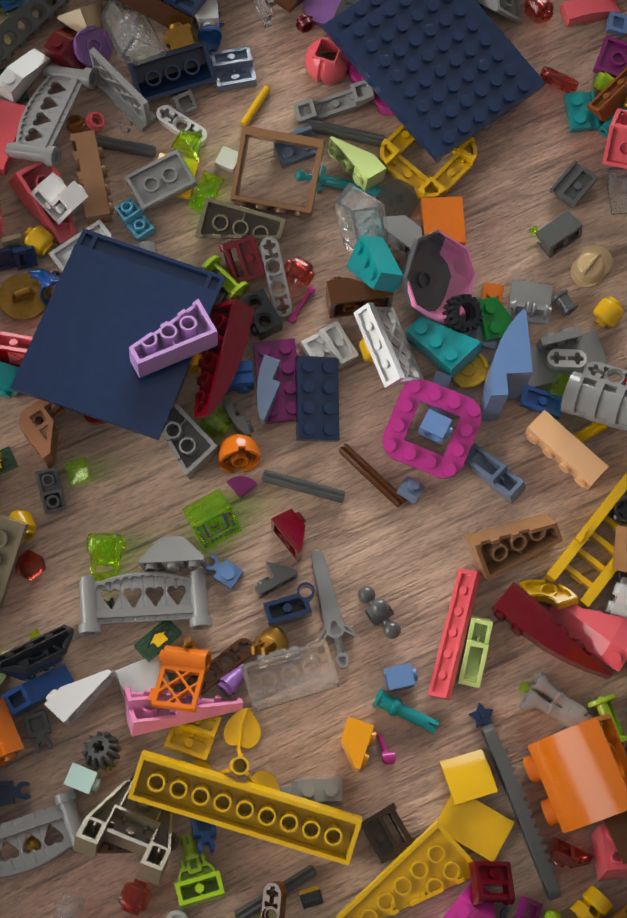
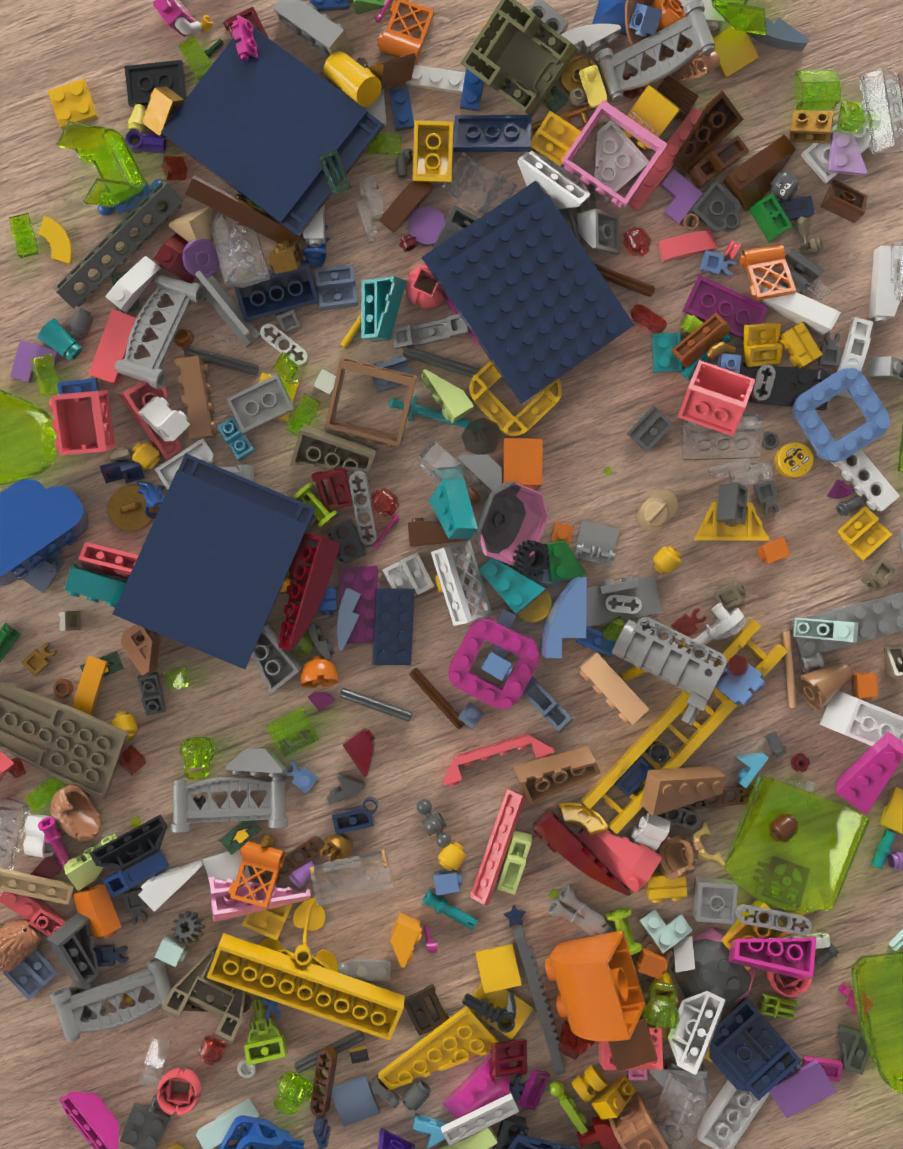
camera: 15 degrees right, 15 degrees up
(98, 118) = (207, 336): coral plate -> none
(174, 341) = (262, 579): lavender wedge -> none
(281, 79) = (380, 307): none -> teal wedge
(331, 614) = (393, 826): light grey sword -> none
(403, 648) = (452, 857): none -> yellow head
(466, 826) = (495, 1014): none -> black piece
(489, 518) = (453, 774): none -> coral slope
(535, 47) = (626, 281): none -> reddish brown axle
(559, 234) = (630, 478): dark grey hinge -> none
(564, 302) = (628, 547): dark grey bush -> none
(599, 543) = (633, 776): none -> dark blue tile

